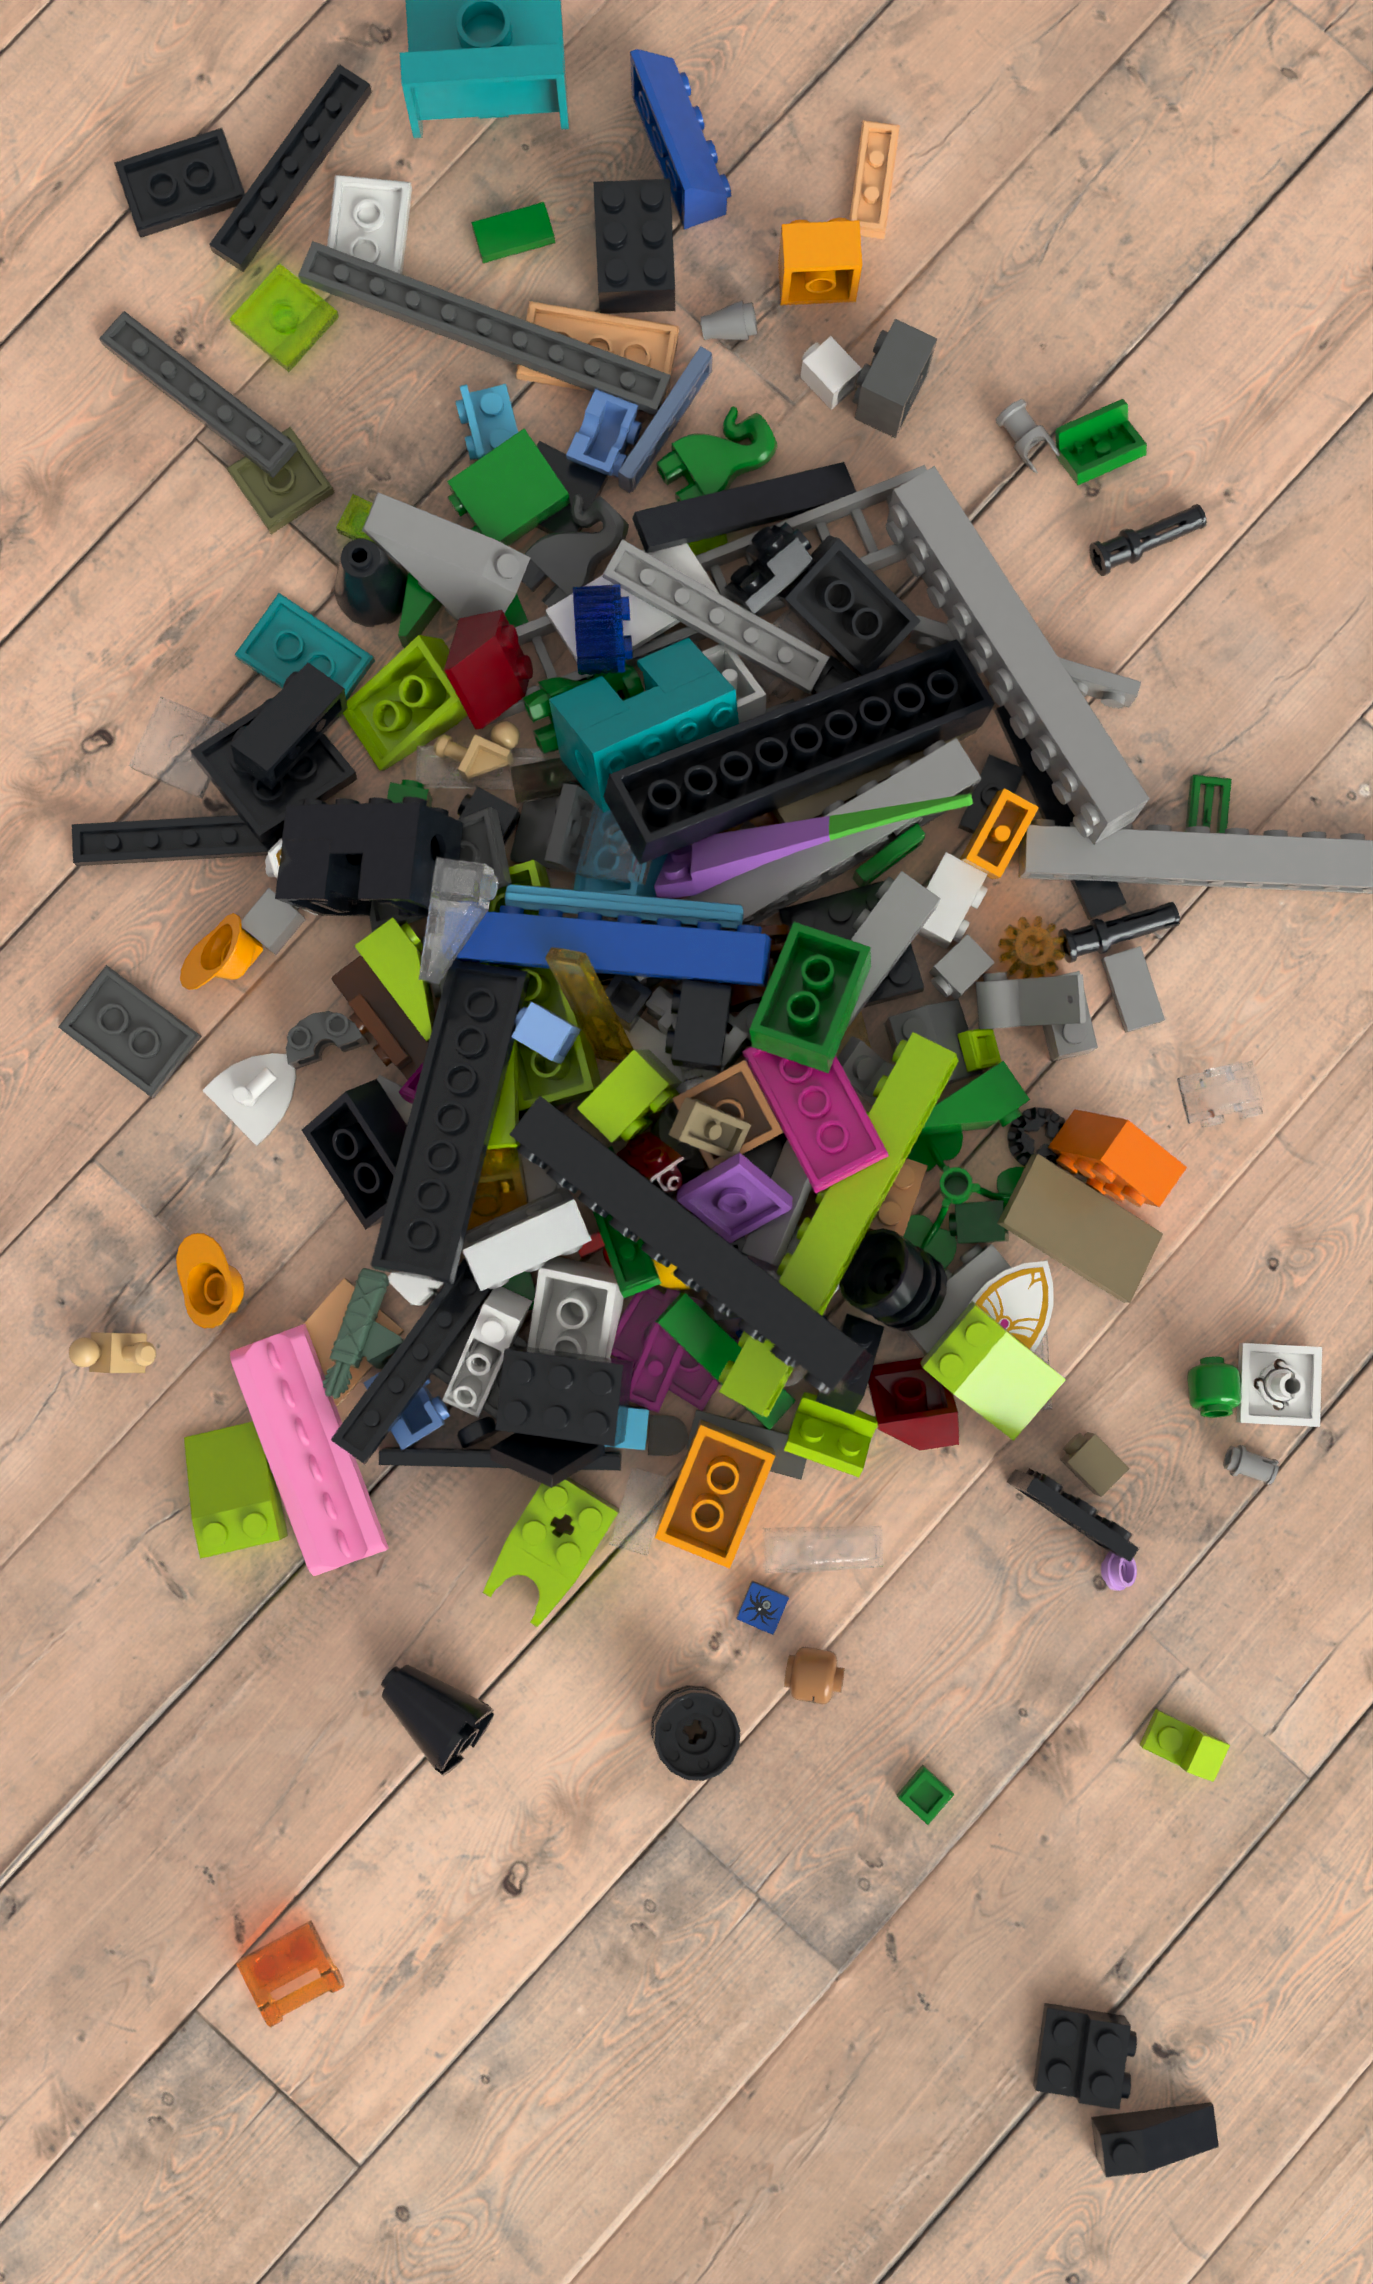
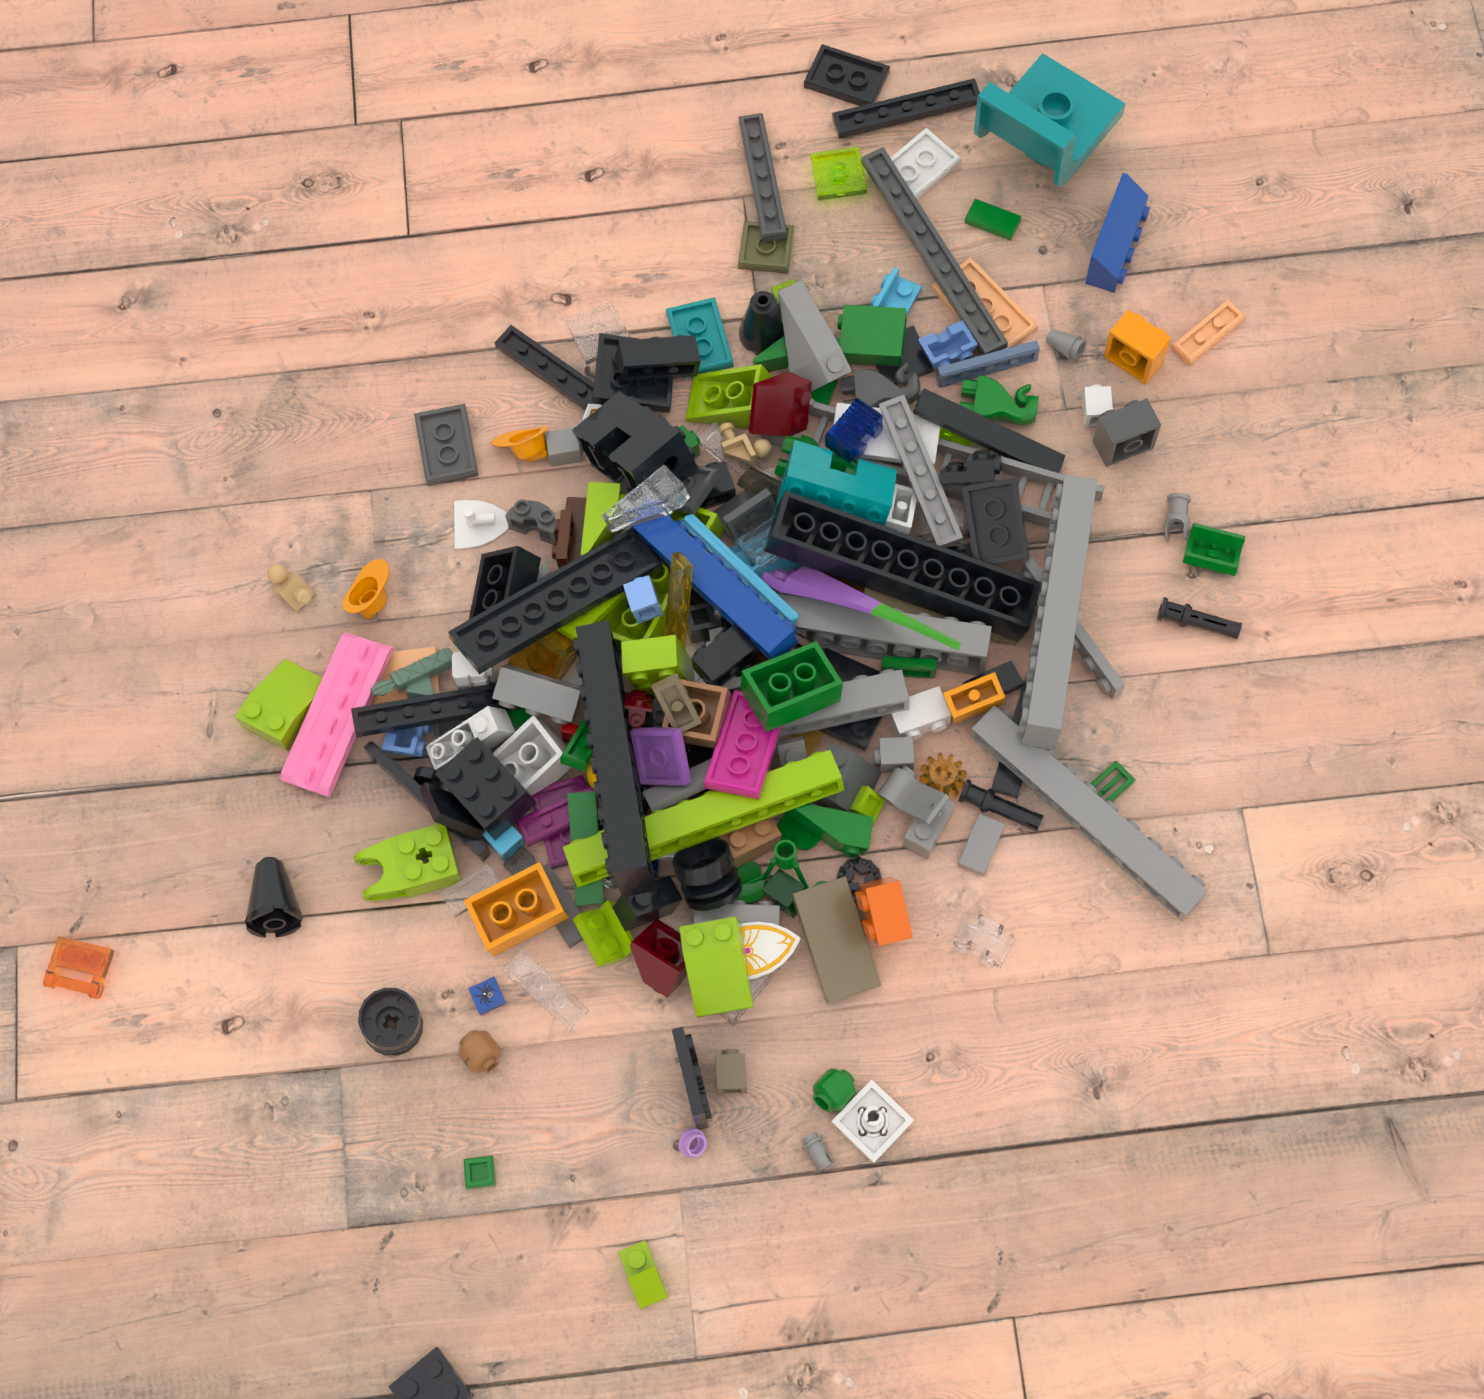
camera: 50 degrees right, 15 degrees down
(634, 246) = (1047, 270): black brick -> none

